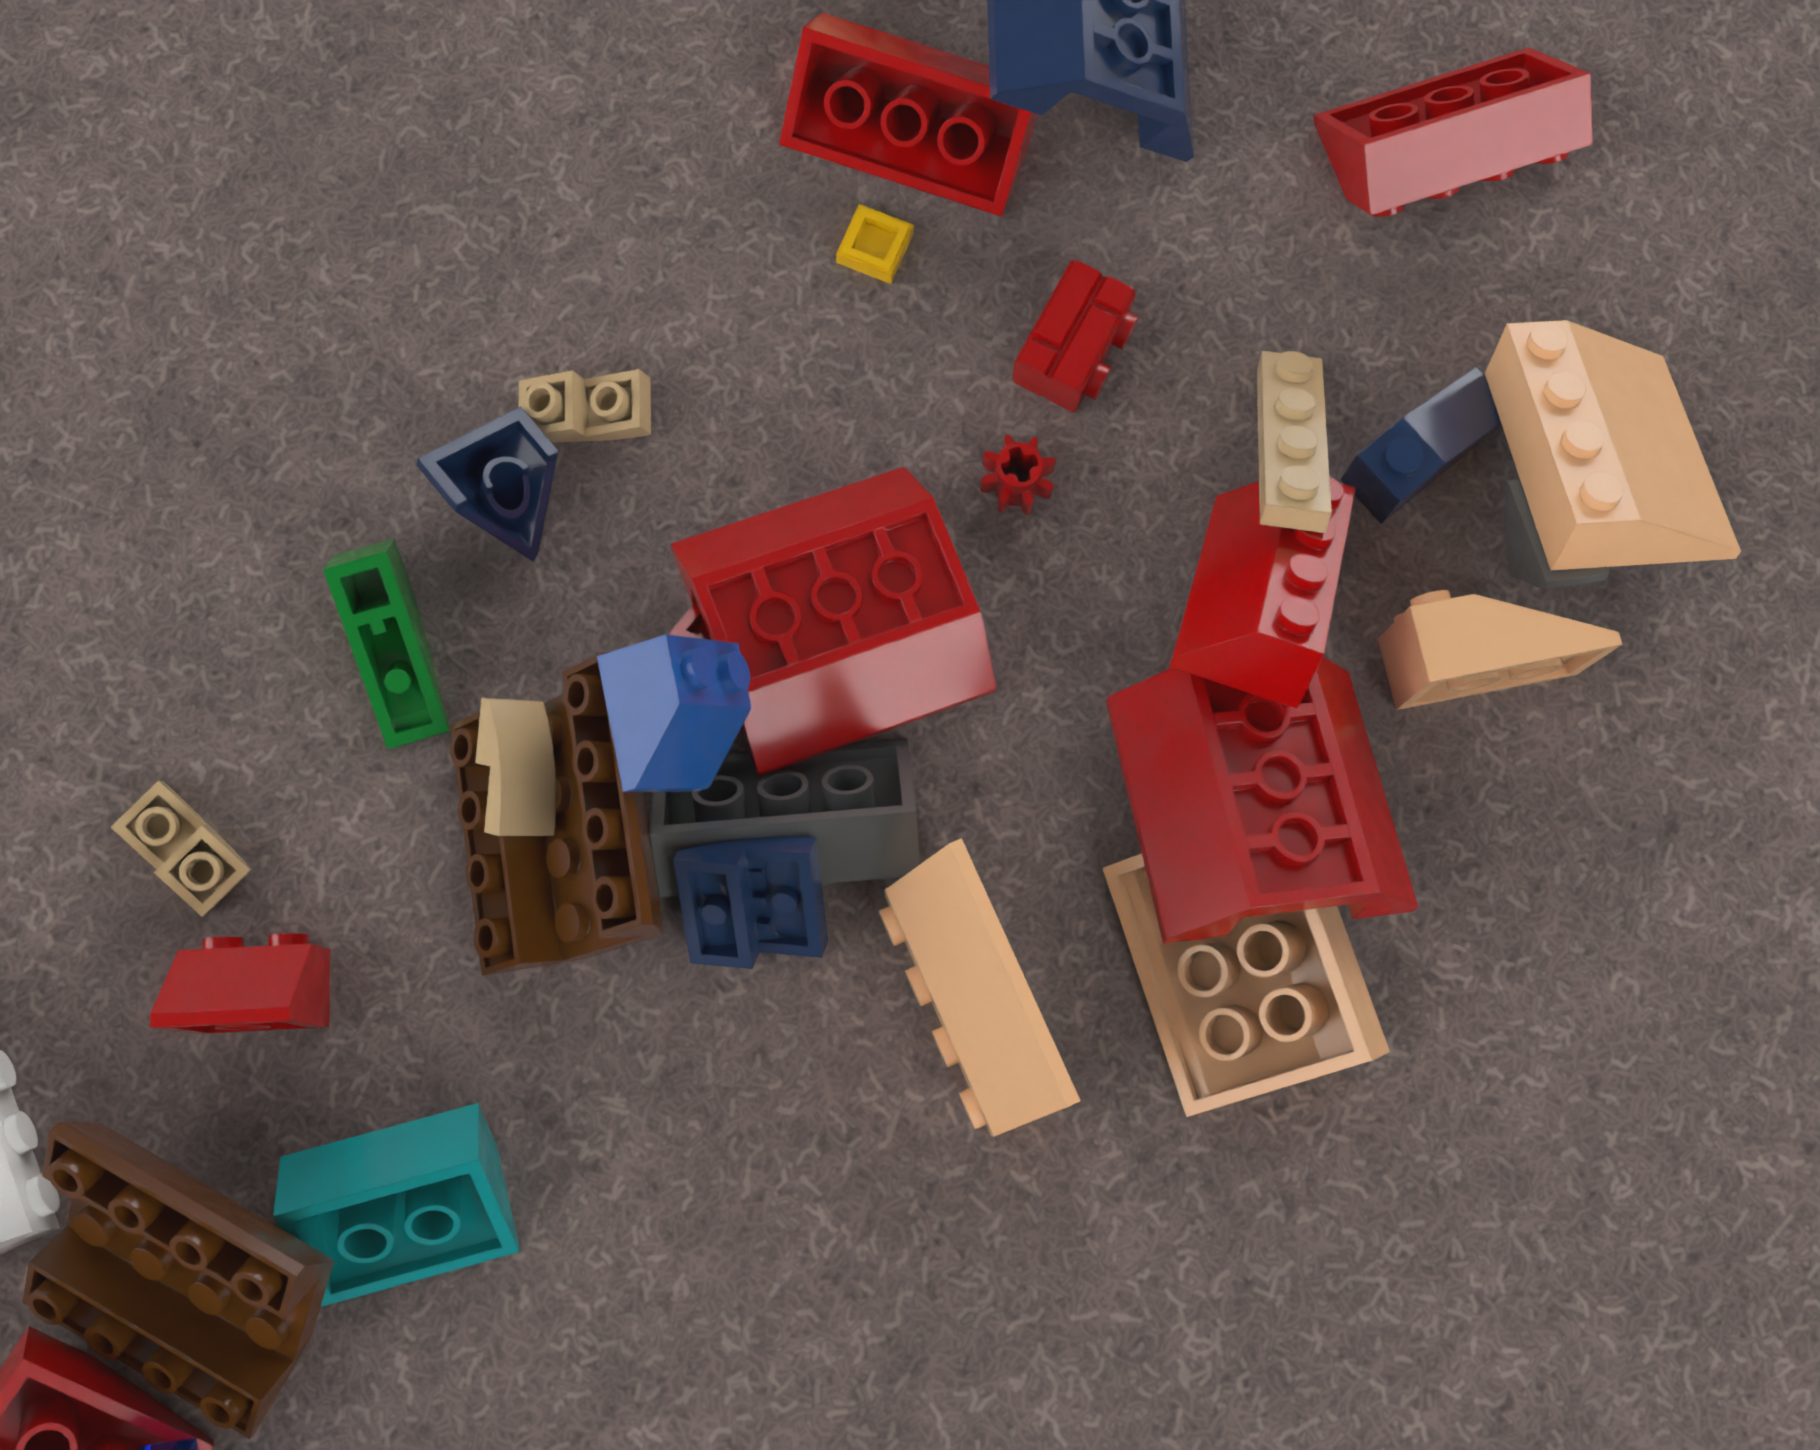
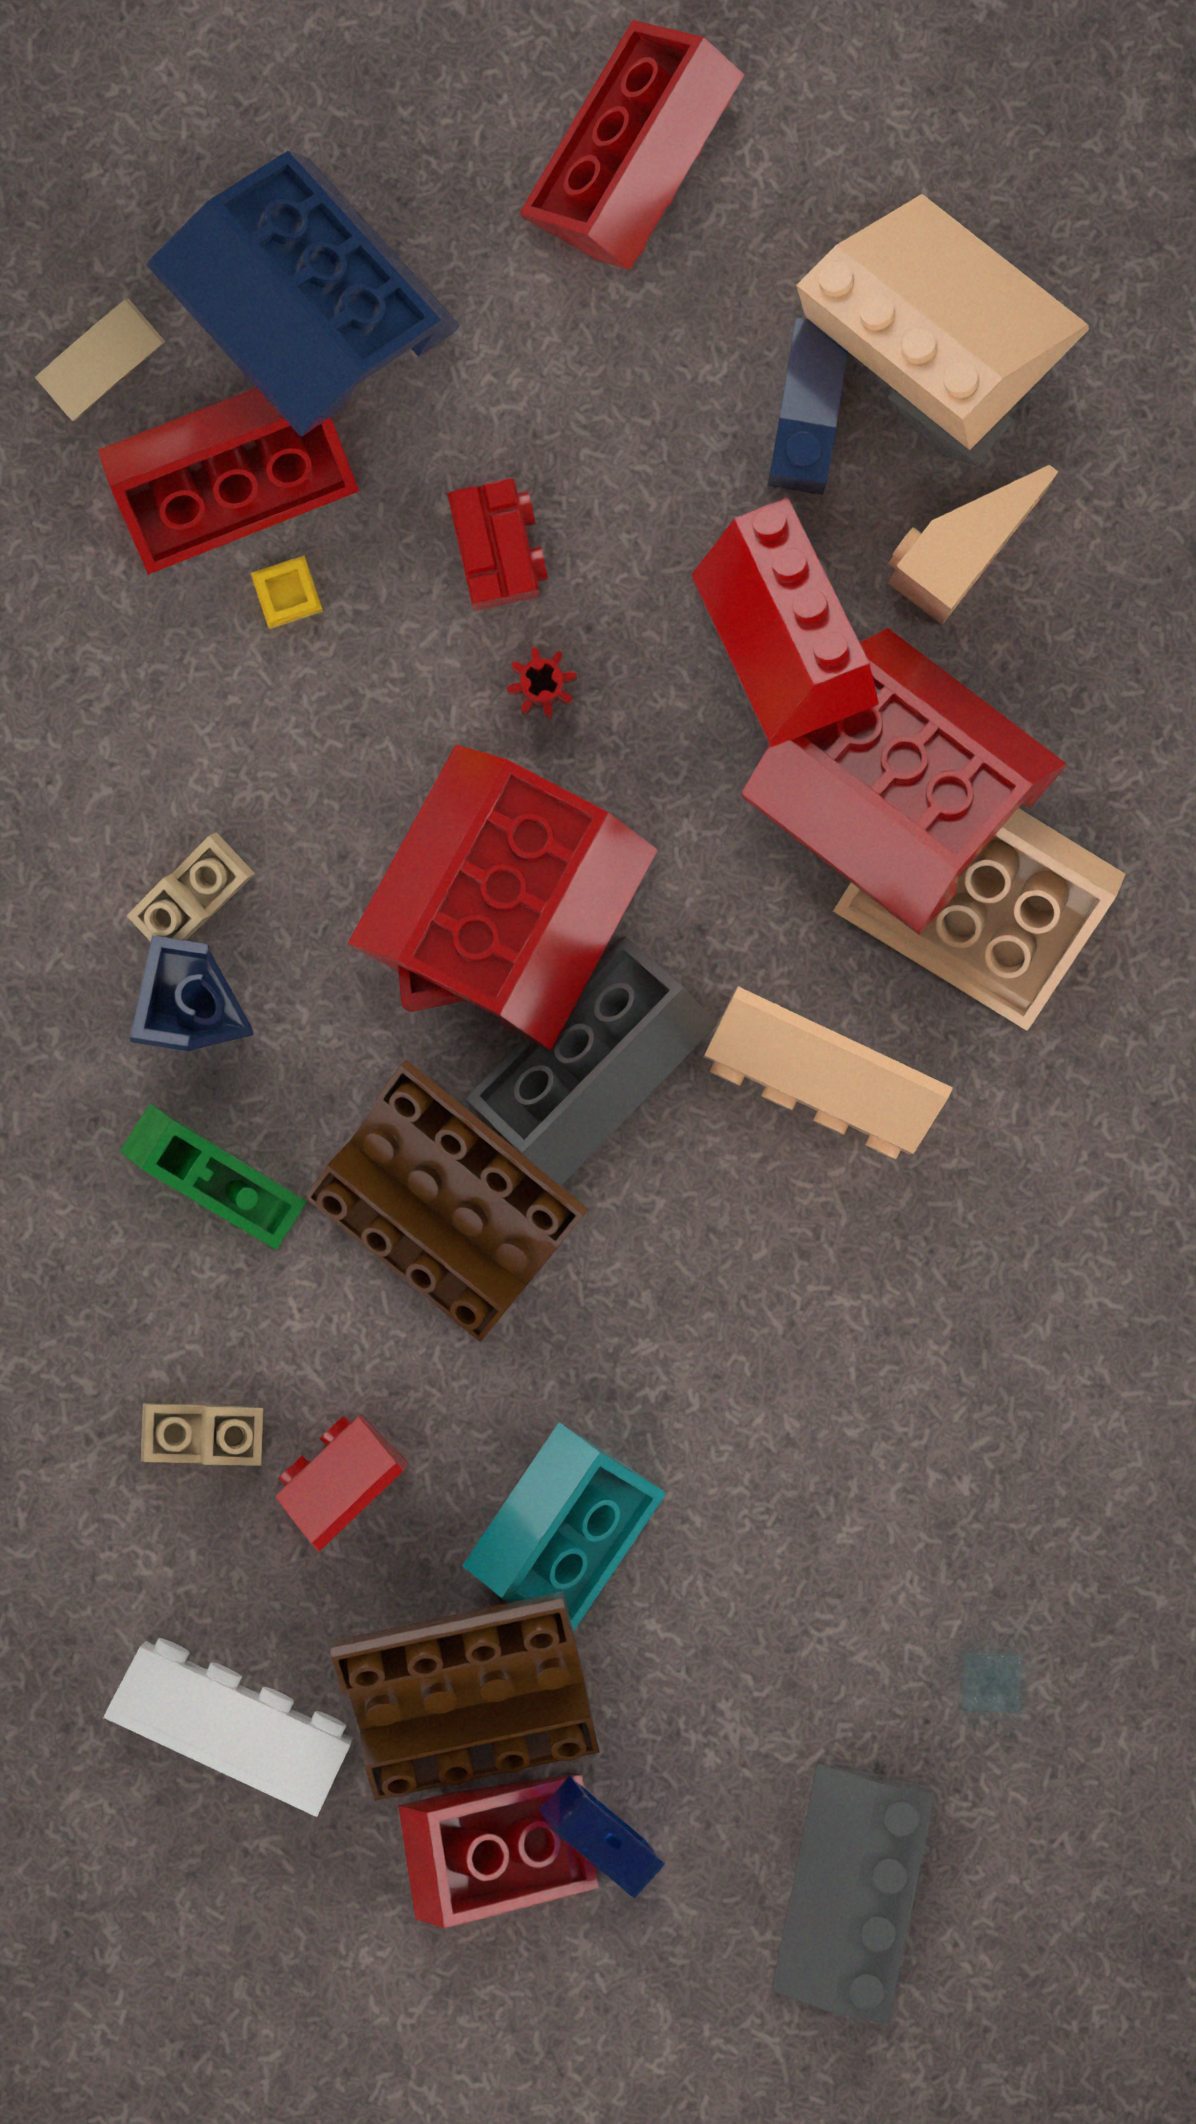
camera: 40 degrees left, 10 degrees up
(520, 754) = (381, 1174): tan slope -> none
(674, 710) = (476, 1060): blue slope -> none
(751, 900) = (621, 1136): dark blue slope -> none
(1292, 442) = (716, 501): tan plate -> none

